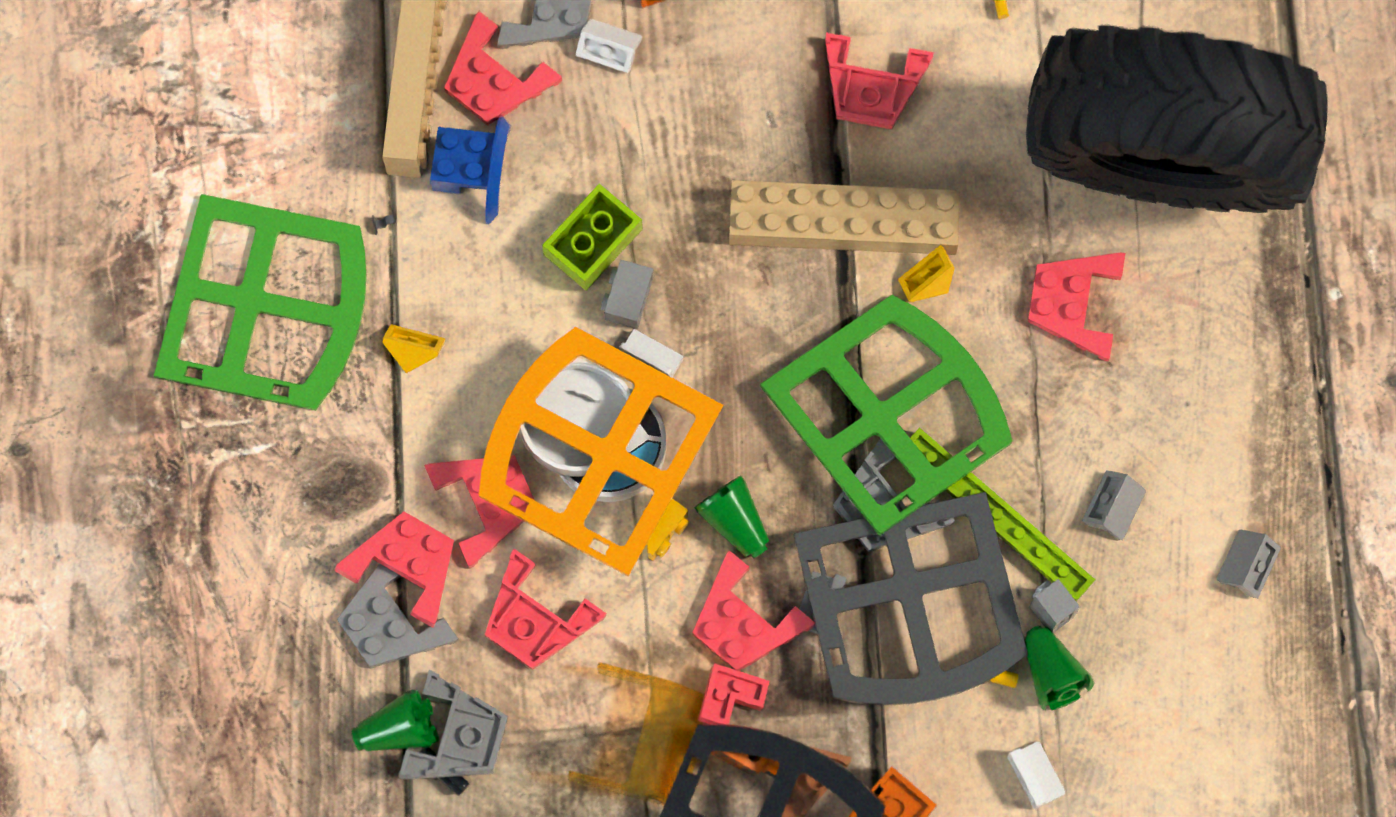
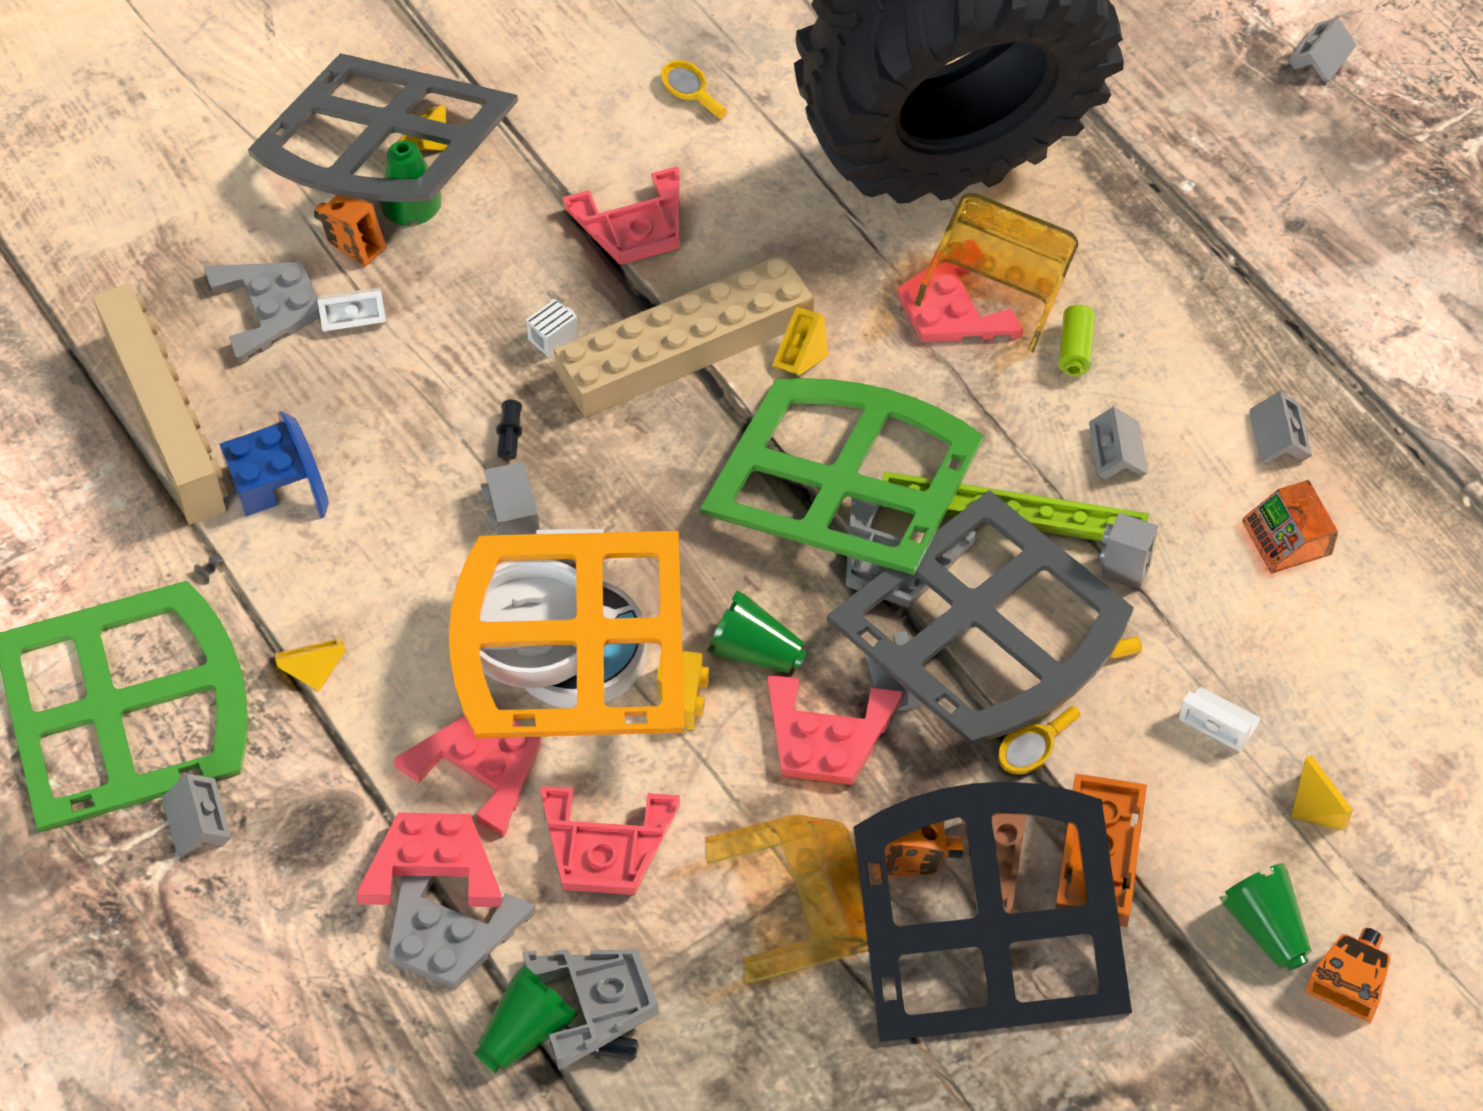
camera: 30 degrees left, 20 degrees down
(266, 428) = (195, 813): none -> light grey panel
(486, 85) = (245, 398): coral wing -> none
(592, 237) = (442, 467): lime brick -> none
(663, 227) = (509, 429): none -> black axle
(728, 687) = (858, 796): coral plate -> none
(748, 152) = (552, 327): none -> white brick
(882, 720) = (1033, 744): none -> yellow piece
(1054, 669) = (1172, 608): green cone -> none
(1139, 284) = (1006, 249): none -> clear yellow windscreen
(1143, 394) = (1076, 340): none -> lime brick
(1194, 653) = (1291, 527): none -> clear orange slope

